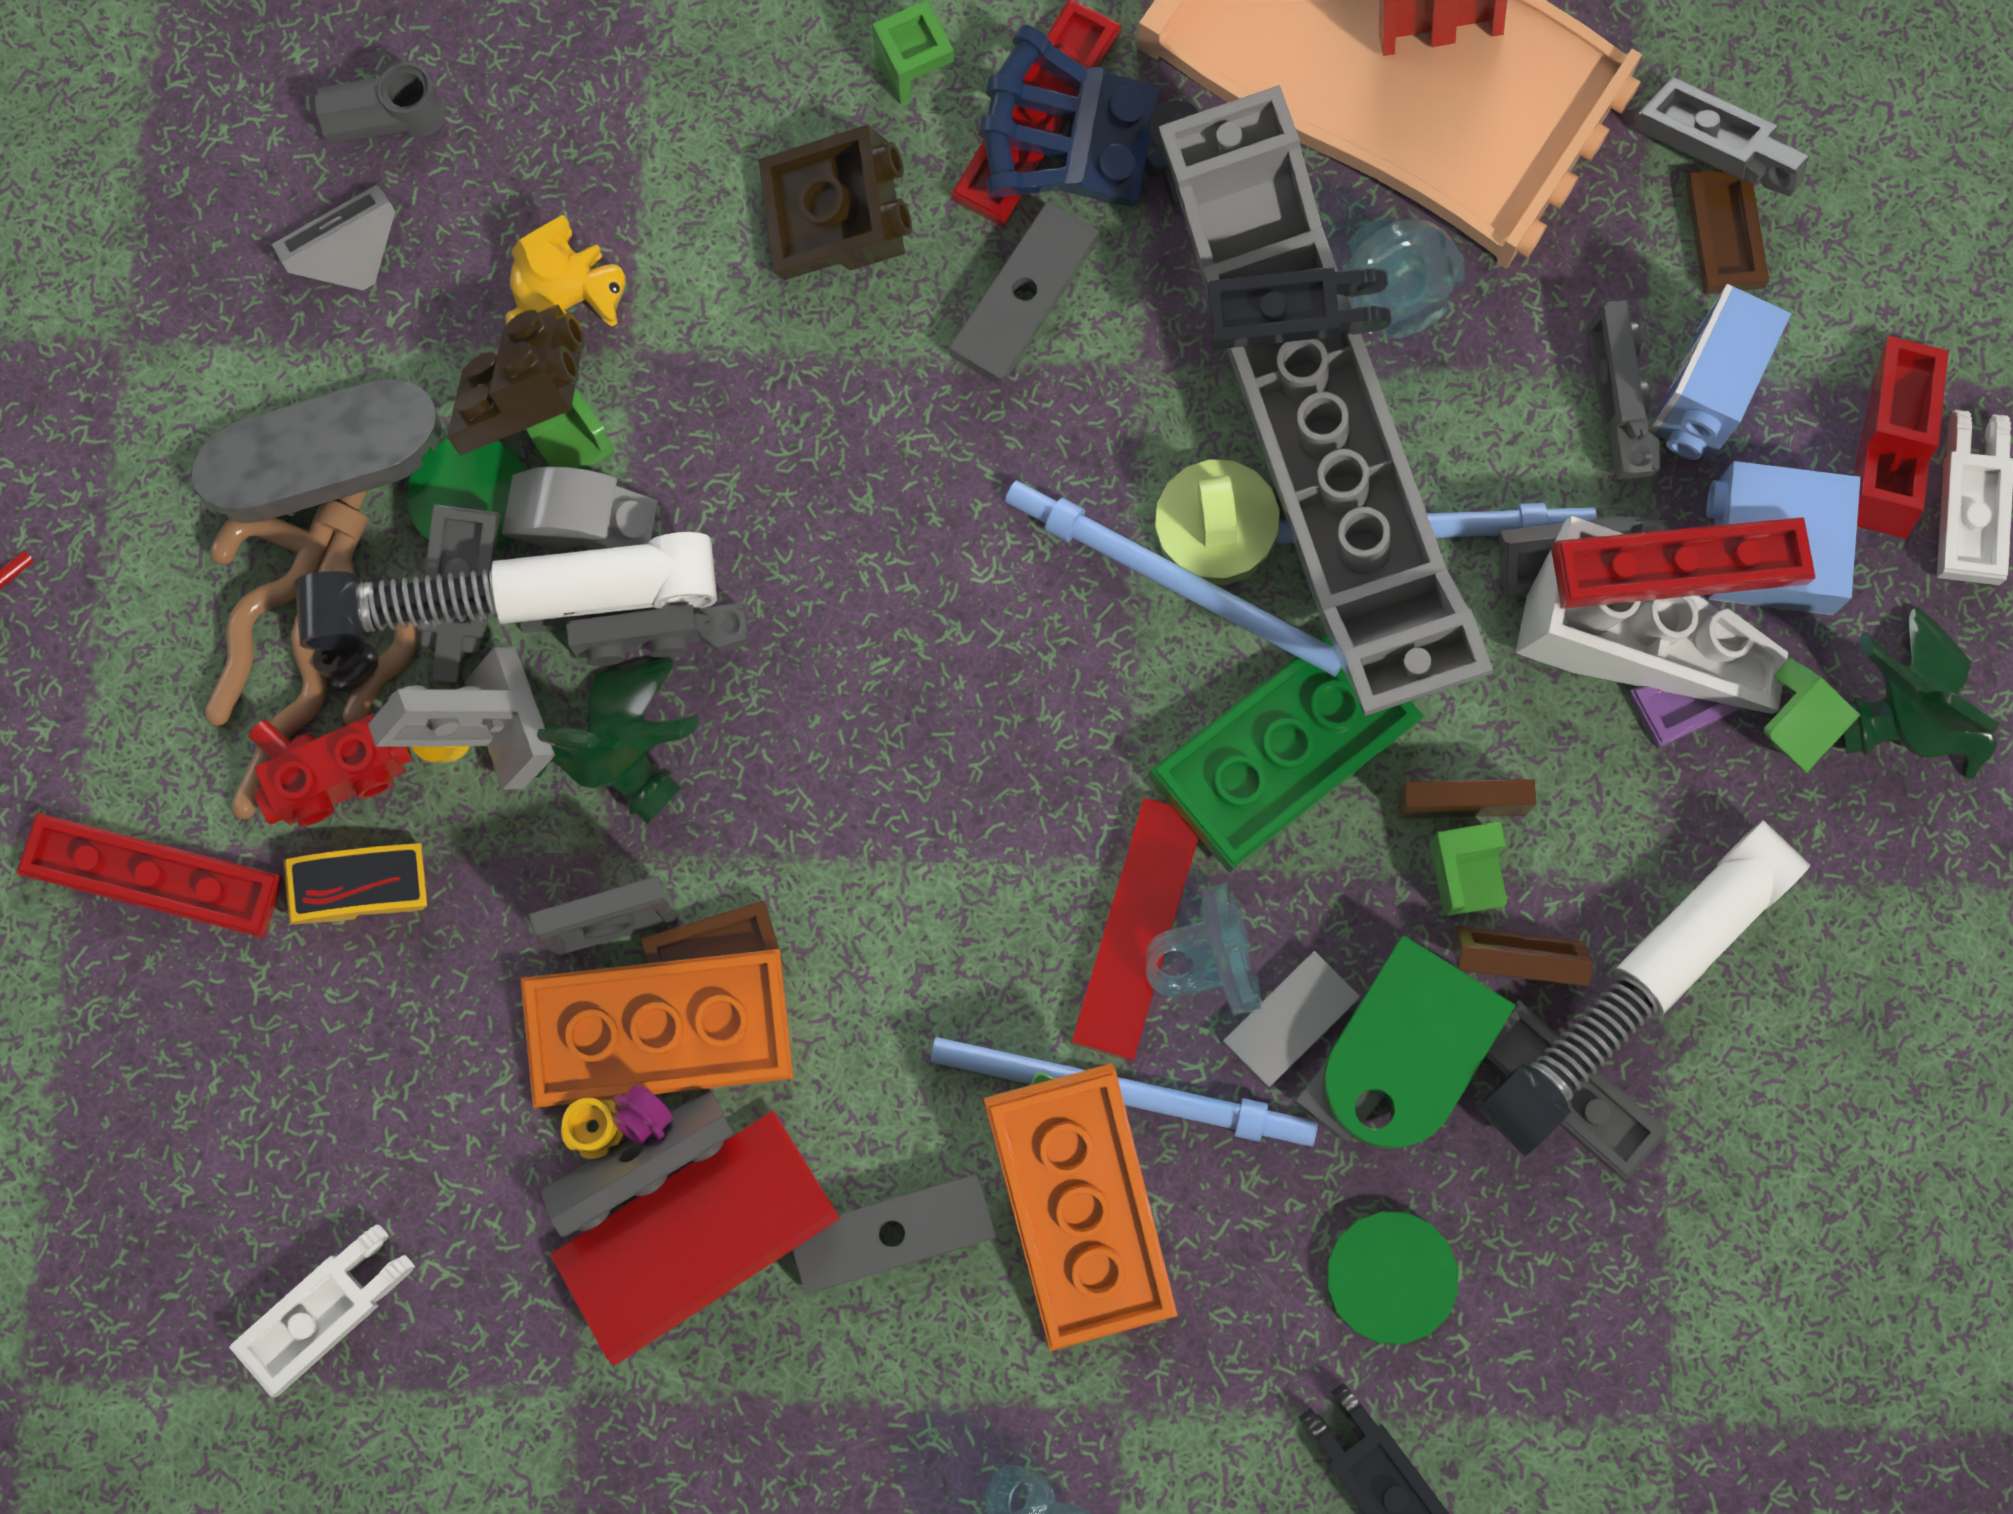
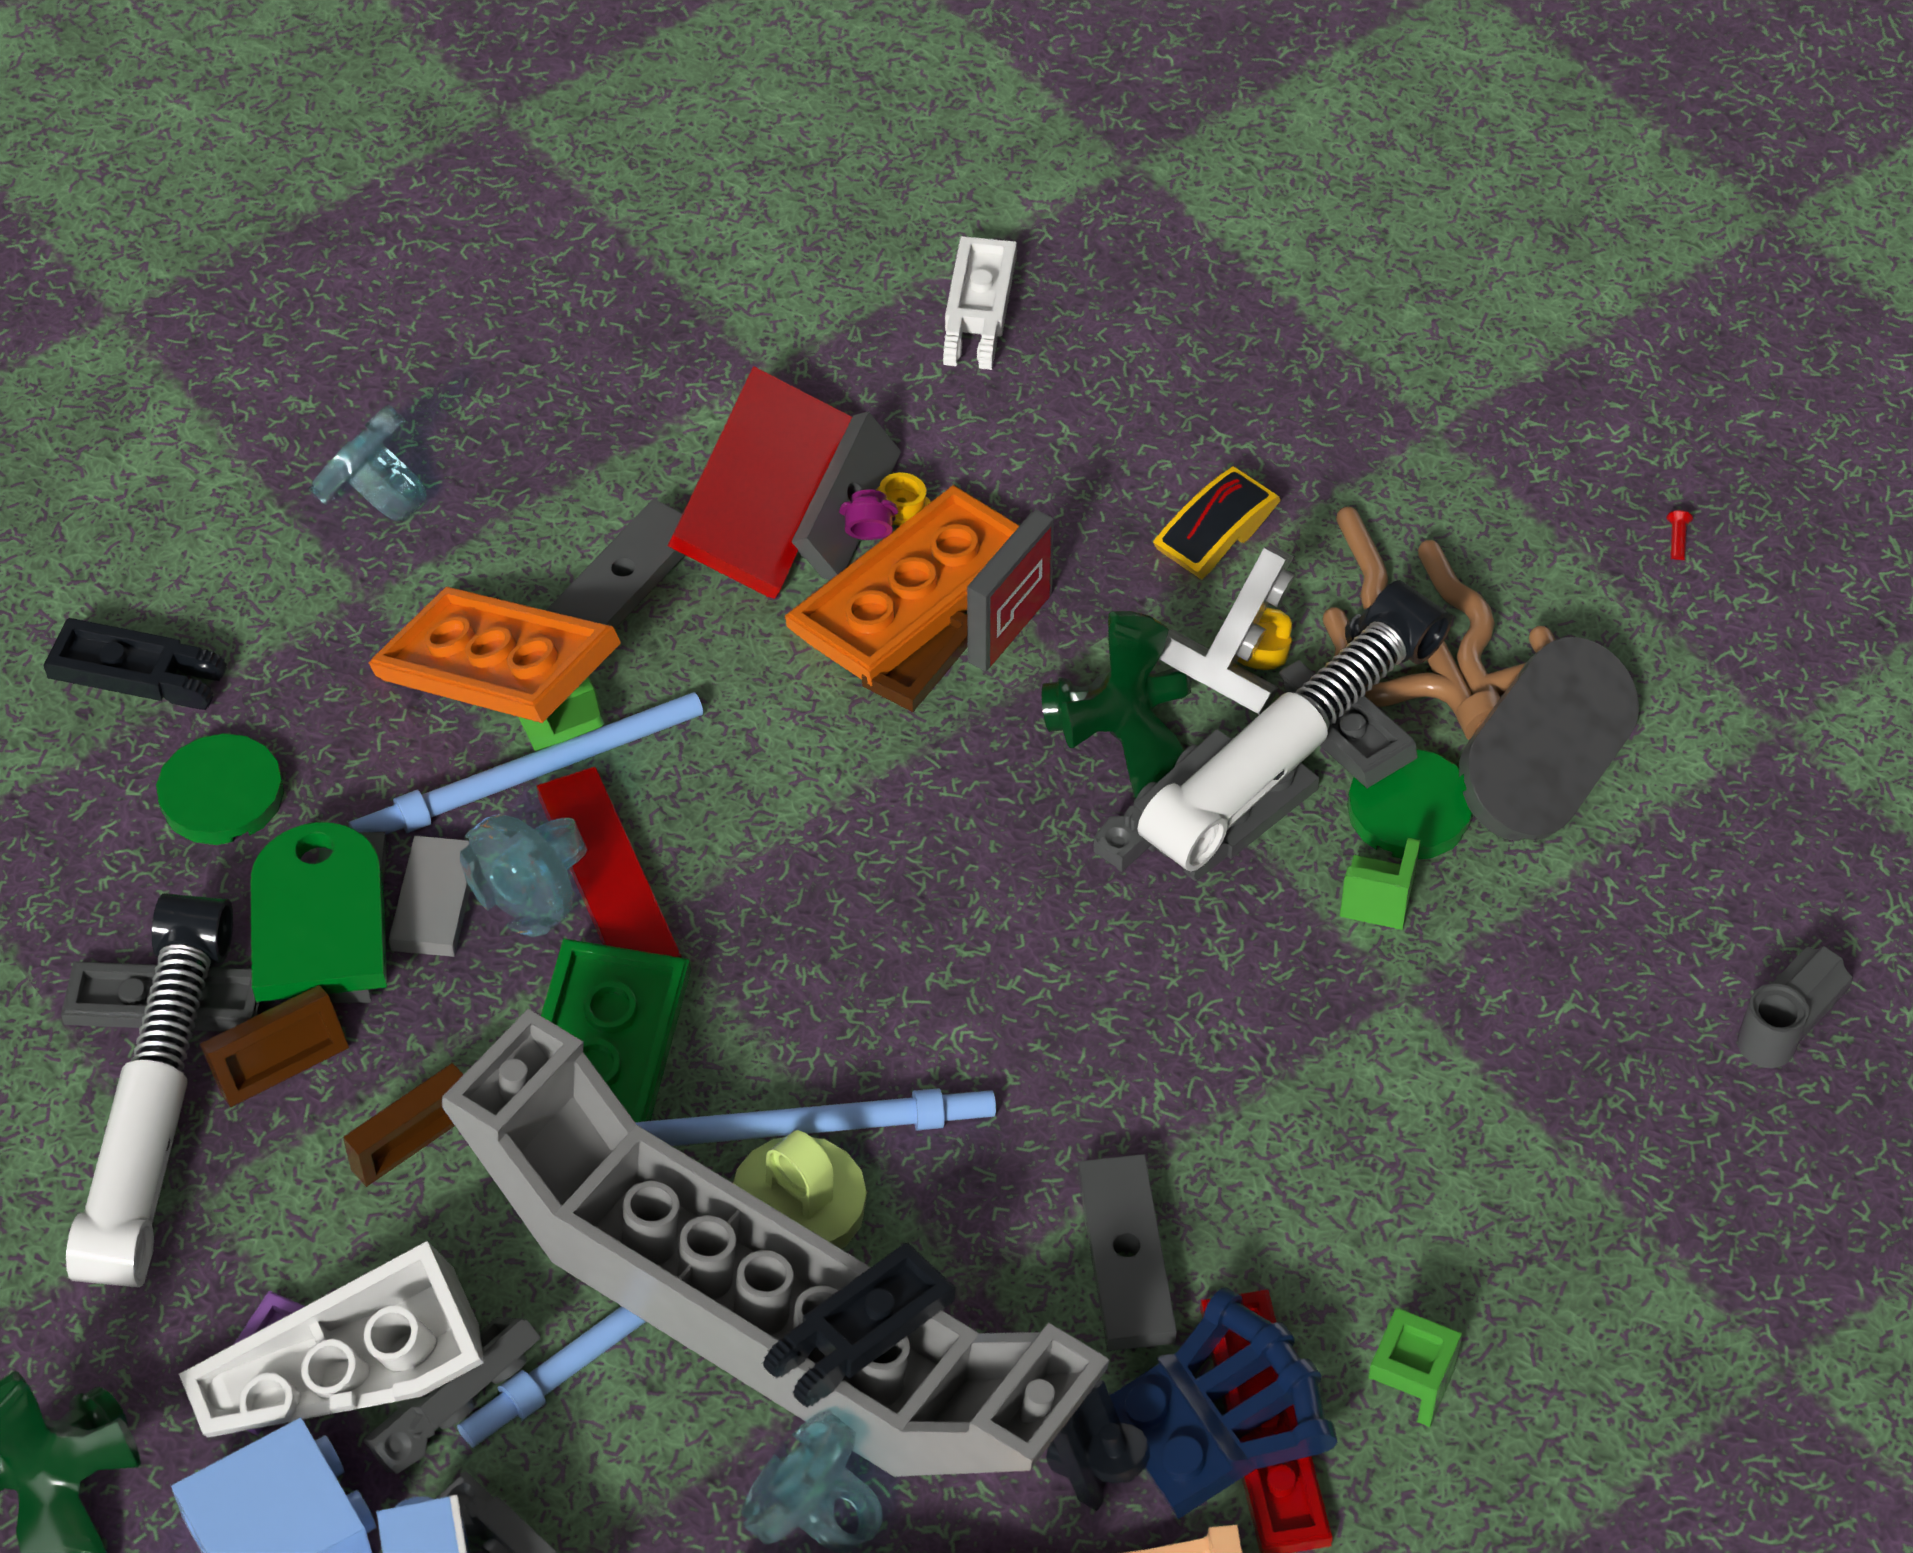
camera: 140 degrees right, 25 degrees down
(150, 875) = (1364, 440): red tile -> none
(316, 774) = (1320, 544): red brick -> none
(343, 243) = (1711, 895): light grey slope -> none
(520, 385) = (1445, 862): dark brown plate -> none
(552, 274) = (1512, 981): yellow animal -> none
(574, 509) = (1306, 821): light grey brick -> none
(834, 203) = (1351, 1199): dark brown plate -> none
(1469, 868) = (370, 1079): bright green panel -> none
(1682, 562) = (346, 1386): red tile -> none
(1810, 719) = (144, 1381): bright green panel -> none

